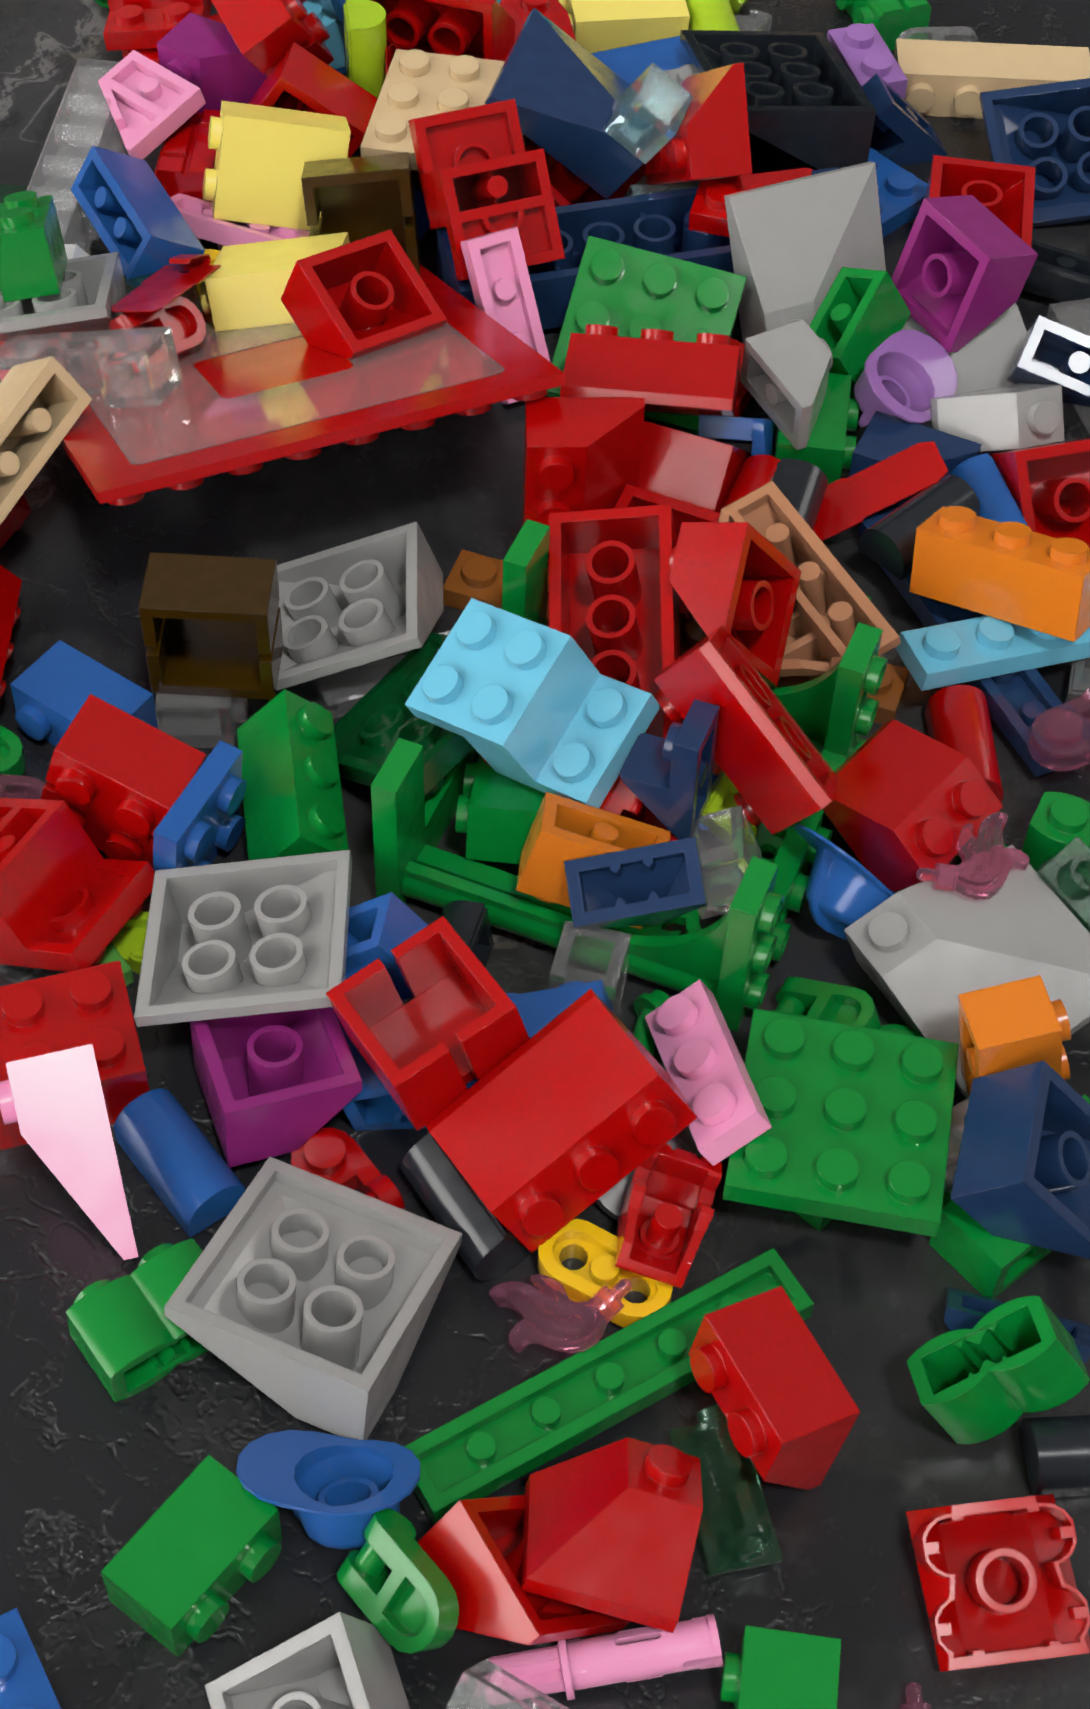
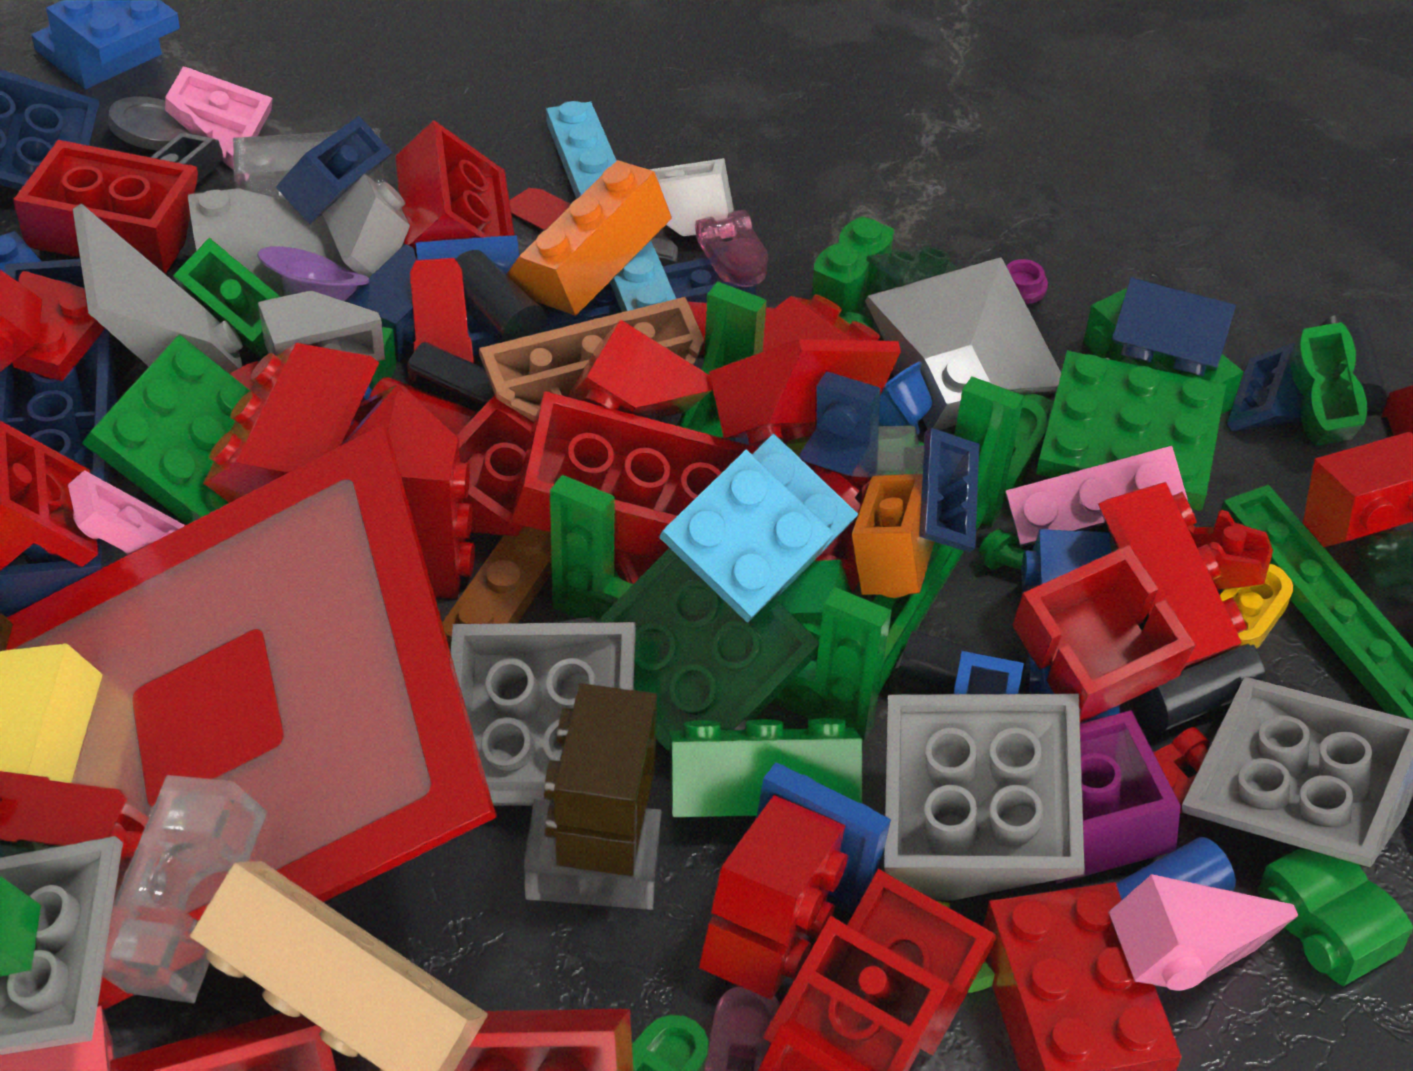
camera: 85 degrees left, 5 degrees down
(59, 684) = (623, 953): blue brick -> none
(360, 297) = (144, 621): red slope -> none
(553, 1318) = (1299, 637): clear pink piece -> none
(590, 957) = (983, 577): clear brick -> none
(960, 269) = (213, 193): magenta slope -> none
(983, 861) = (893, 305): clear pink piece -> none
(1011, 1028) = (1078, 313): orange brick -> none

